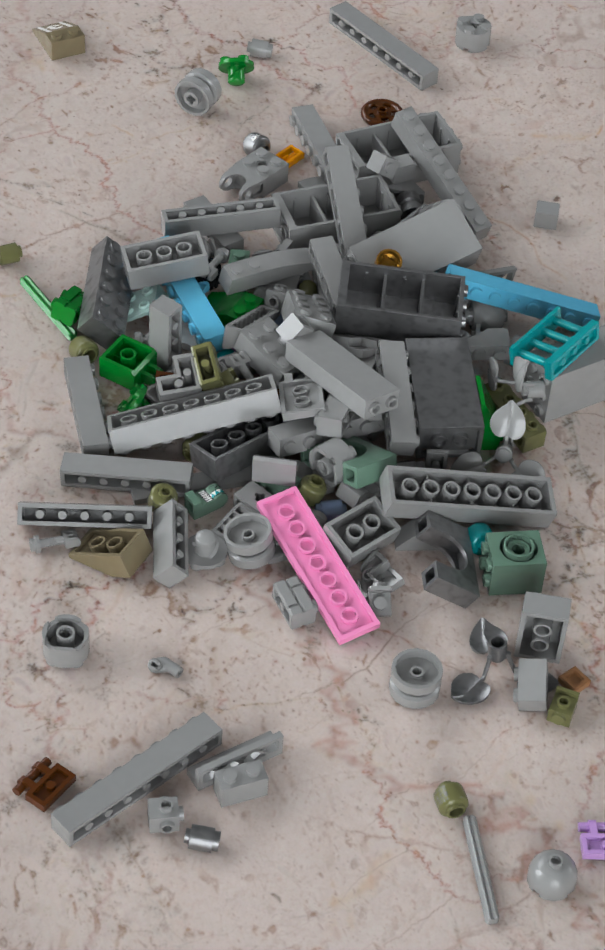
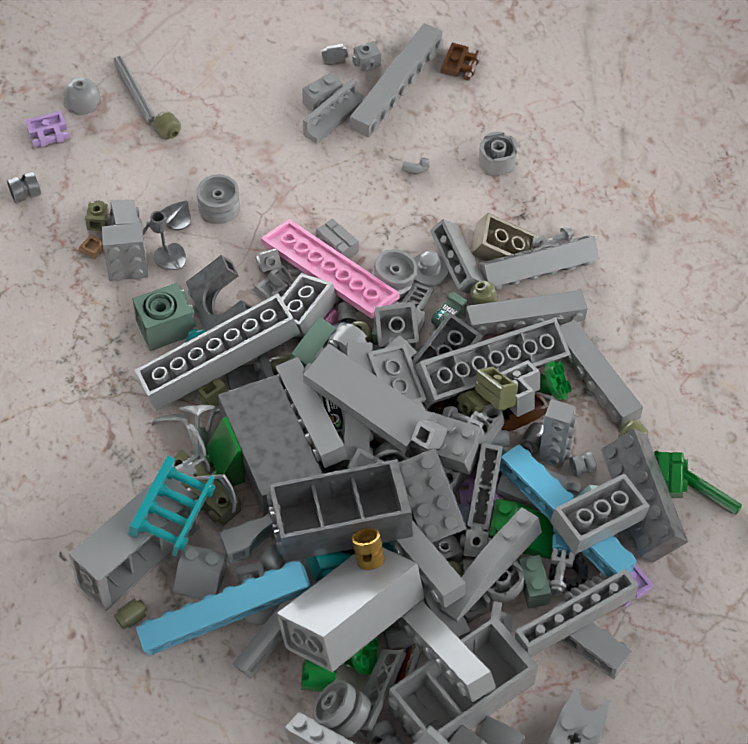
camera: 165 degrees right, 10 degrees up
(129, 363) = (589, 425): green hinge -> none

